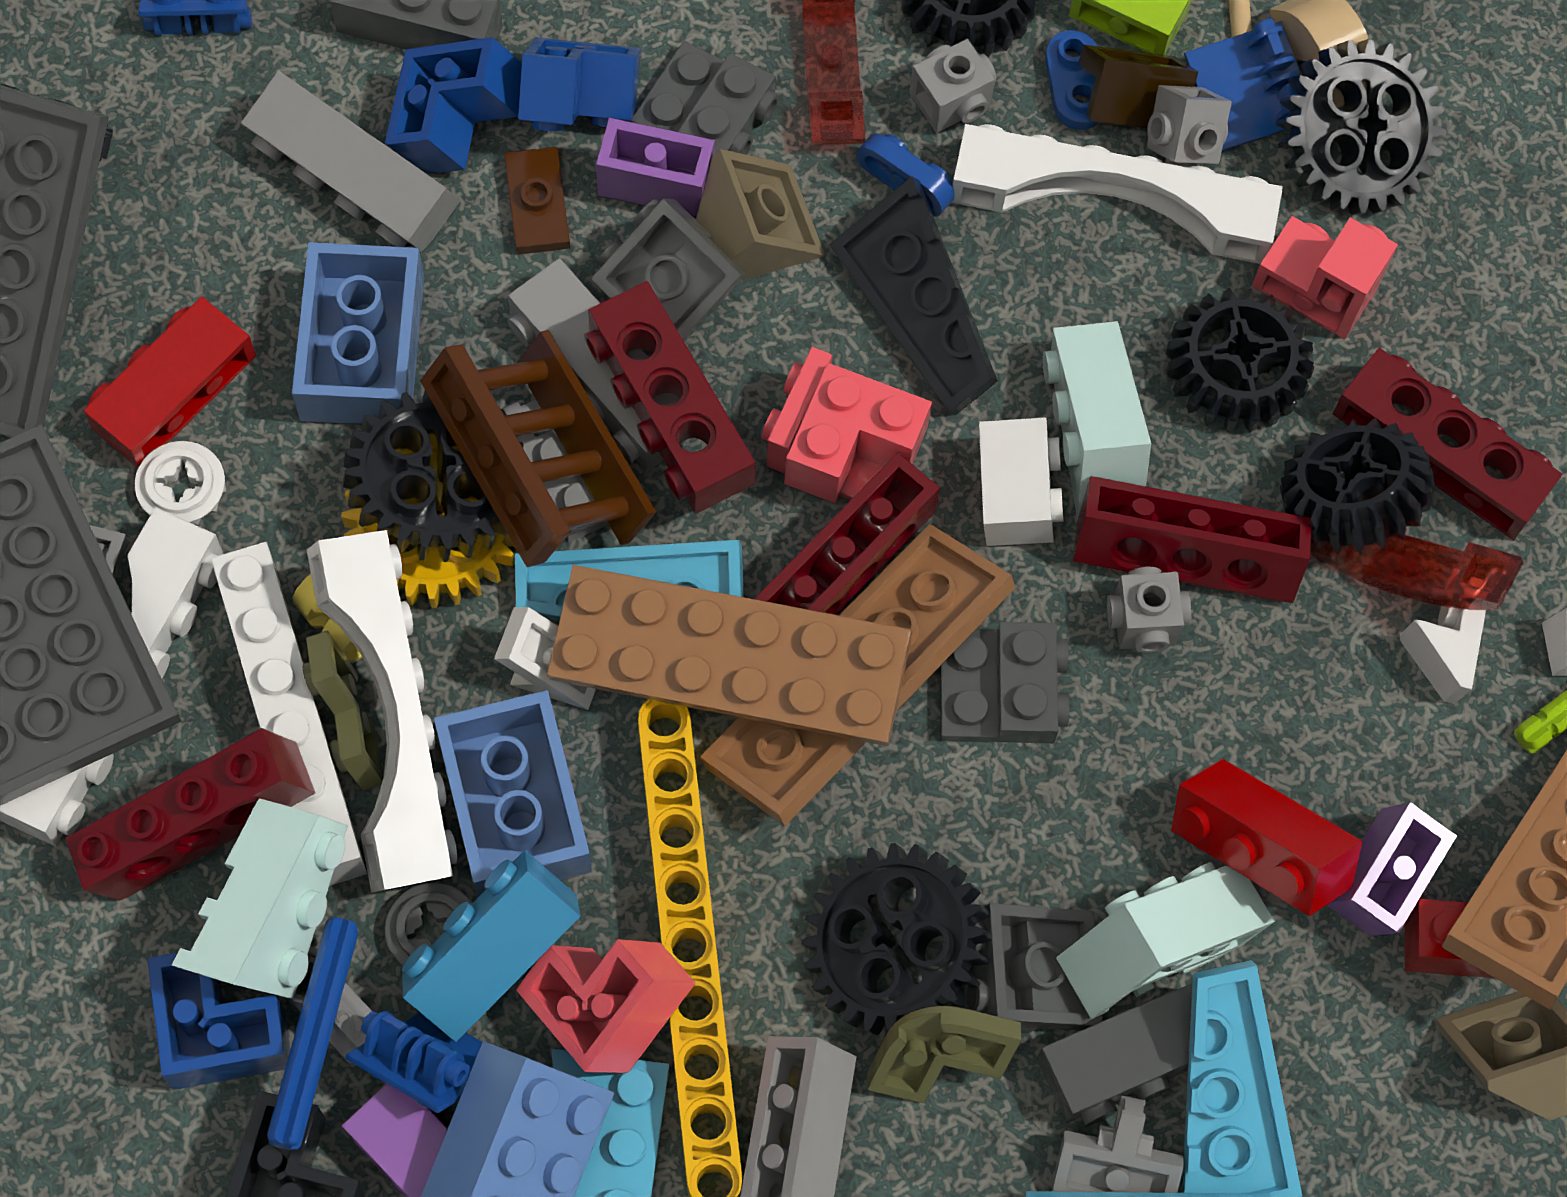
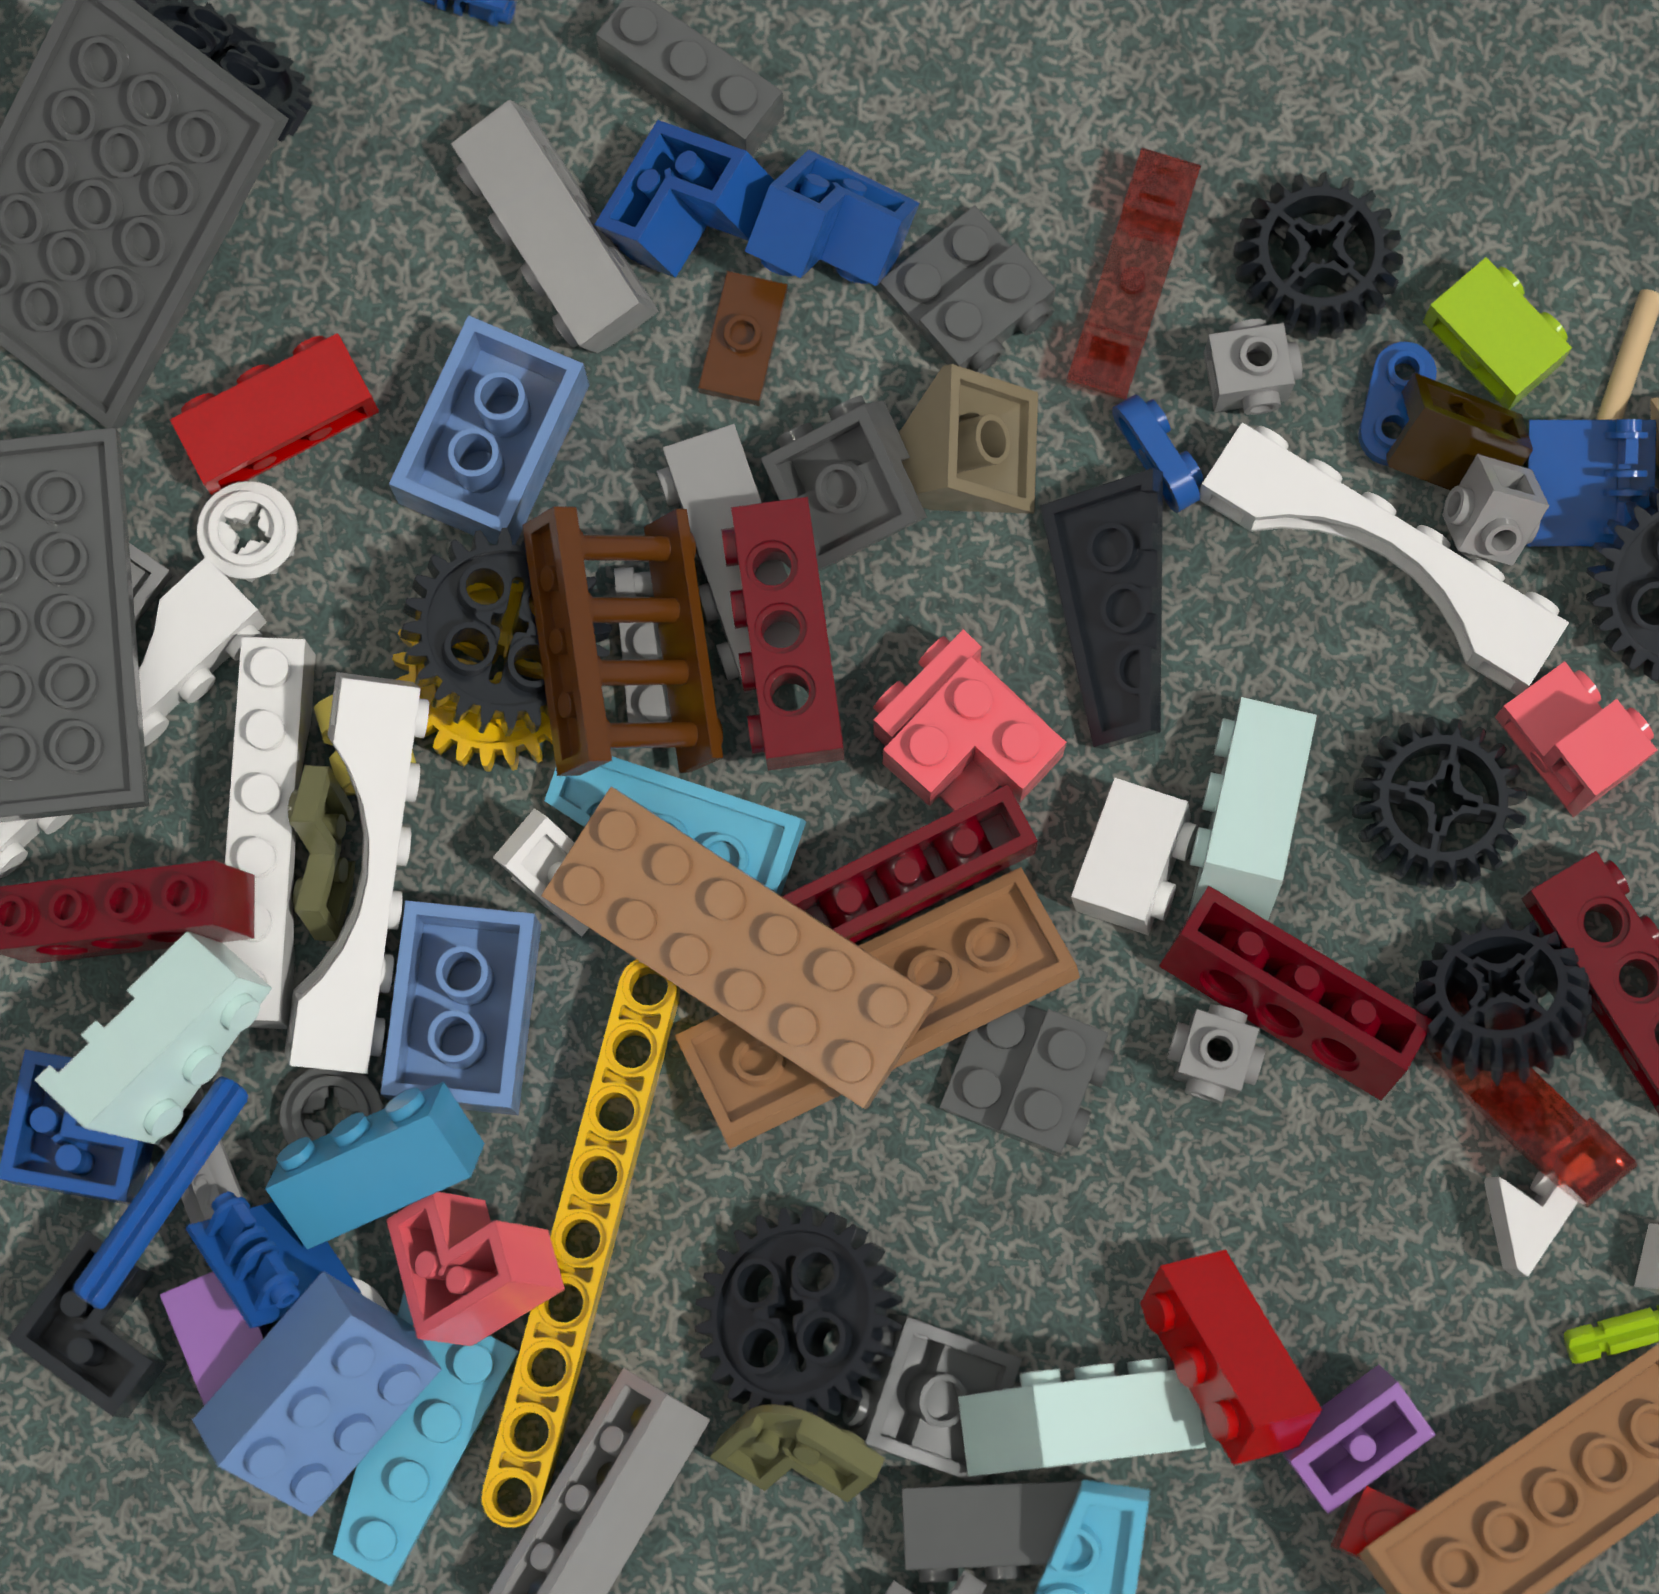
camera: 30 degrees right, 10 degrees up
(651, 164) = (878, 349): medium lavender brick -> none

